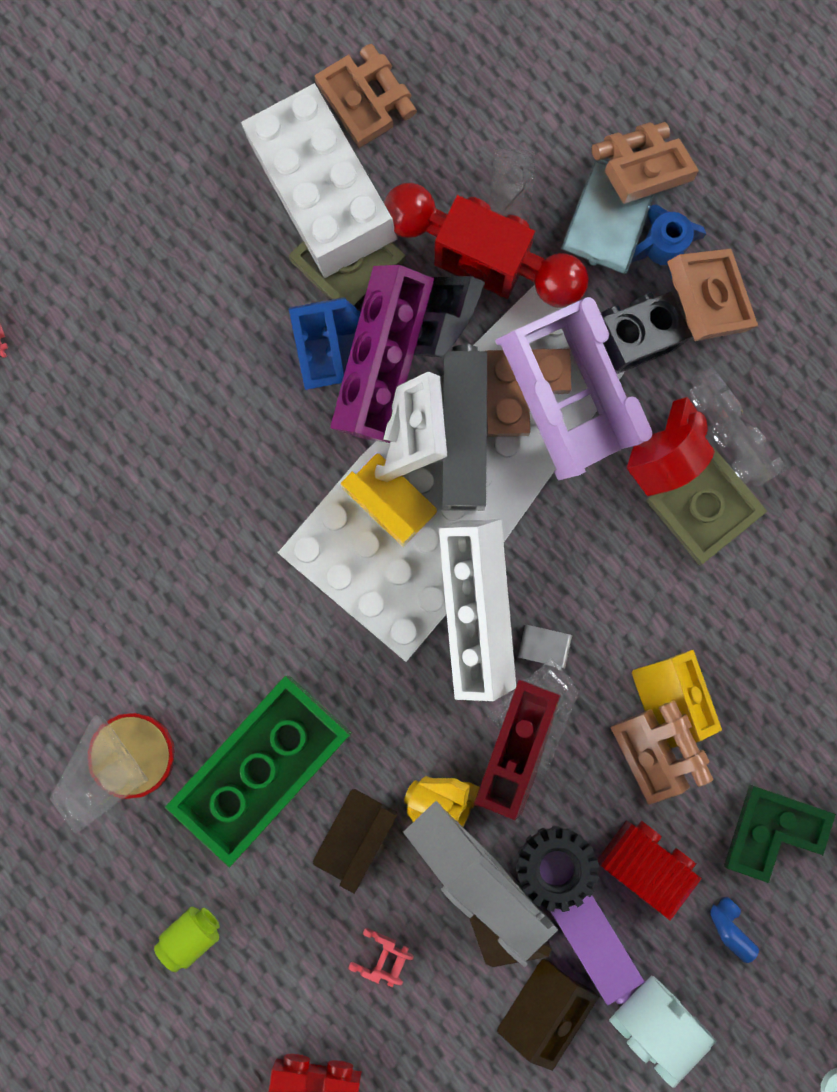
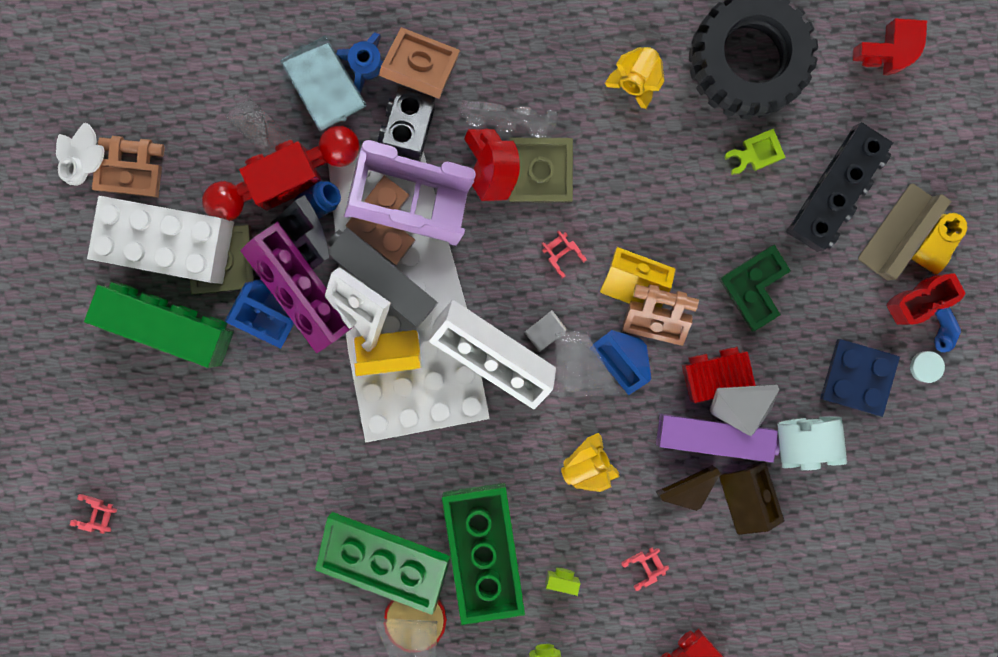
camera: 50 degrees left, 5 degrees up
(165, 671) = (382, 563): none -> green plate
(228, 239) = (159, 326): none -> green brick
(296, 880) = (563, 581): none -> lime plate
(337, 37) = (78, 155): none -> white plate
(354, 839) = (566, 529): dark brown panel -> none
(479, 883) = (648, 481): light grey piece -> none
(495, 307) = (323, 197): none -> blue brick
(518, 750) = (592, 397): dark red slope -> none
(572, 891) = (694, 436): black tyre -> none
(583, 754) = (625, 359): none -> blue slope
(641, 923) = (744, 406): none -> light grey slope
(649, 170) = (314, 37): nougat plate -> none
(653, 601) = (554, 258): none -> coral piece
(730, 934) = (790, 359): blue arm -> none
(772, 1026) = (860, 377): none -> dark blue plate

